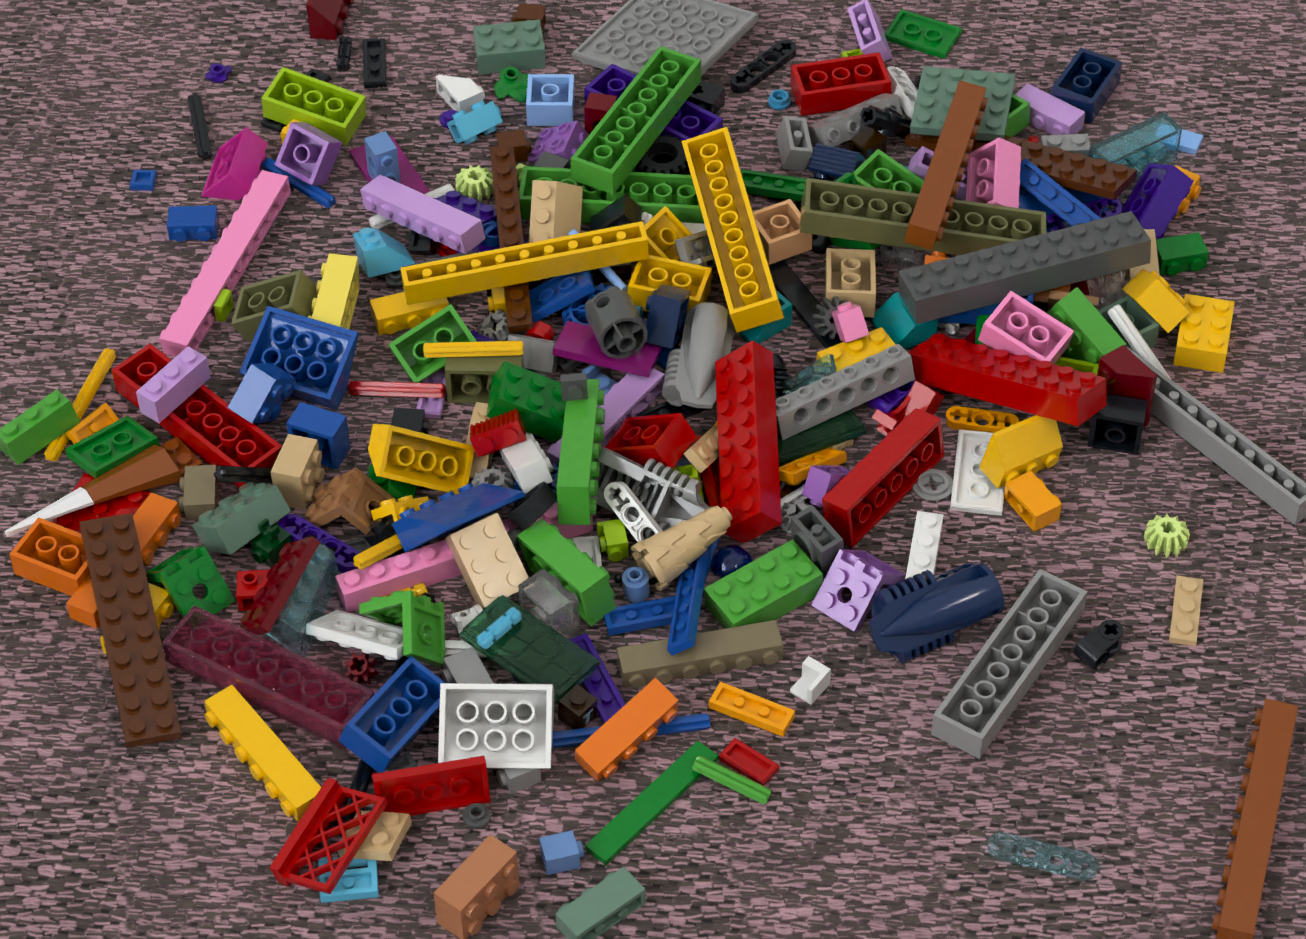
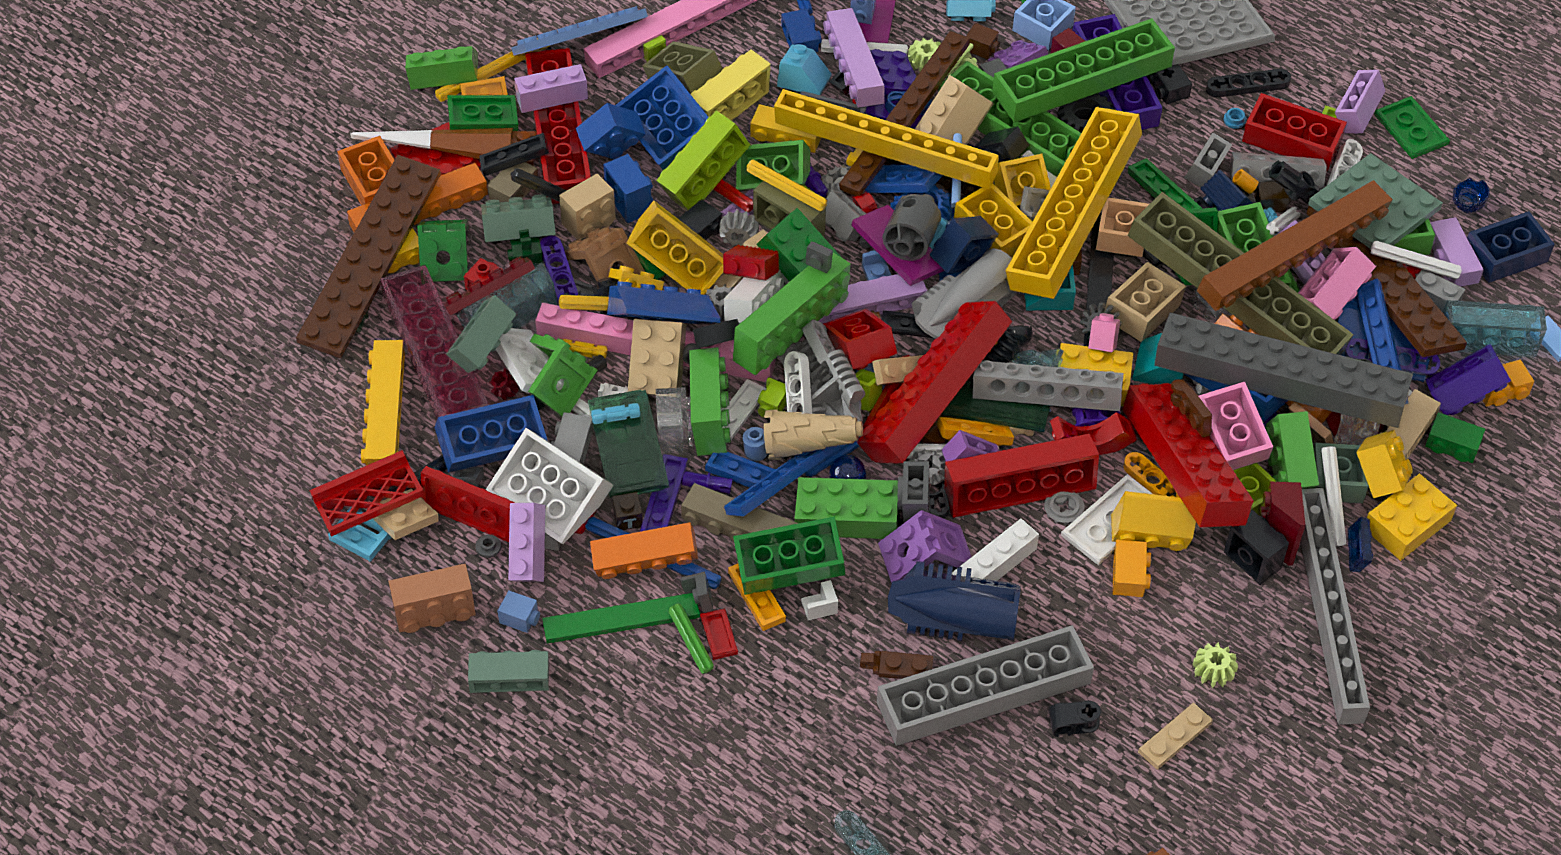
camera: 35 degrees right, 5 degrees up
(143, 324) = (574, 31): none -> medium blue plate
(185, 463) = (513, 154): none -> black tile
(316, 630) = (482, 334): none -> sand green brick
(342, 220) = (800, 29): none -> blue brick
(373, 371) = (703, 161): none -> lime brick
(450, 415) = (737, 227): none -> light grey gear
(521, 785) = (526, 542): none -> lavender brick
(609, 647) = (712, 482): none -> dark purple axle
(704, 732) = (701, 590): none -> dark grey bracket
(762, 654) = (789, 555): none -> green brick
(841, 141) = (1245, 181): none -> light orange hinge
(902, 156) = (1282, 221): none -> white axle
(920, 693) = (896, 664): none -> reddish brown hinge
(983, 336) = (1192, 407): none -> reddish brown hinge
(1021, 56) = (1471, 191): none -> clear blue hair
(1035, 129) = (1416, 260): none -> white axle
(1187, 376) = (1359, 545): none -> clear blue plate

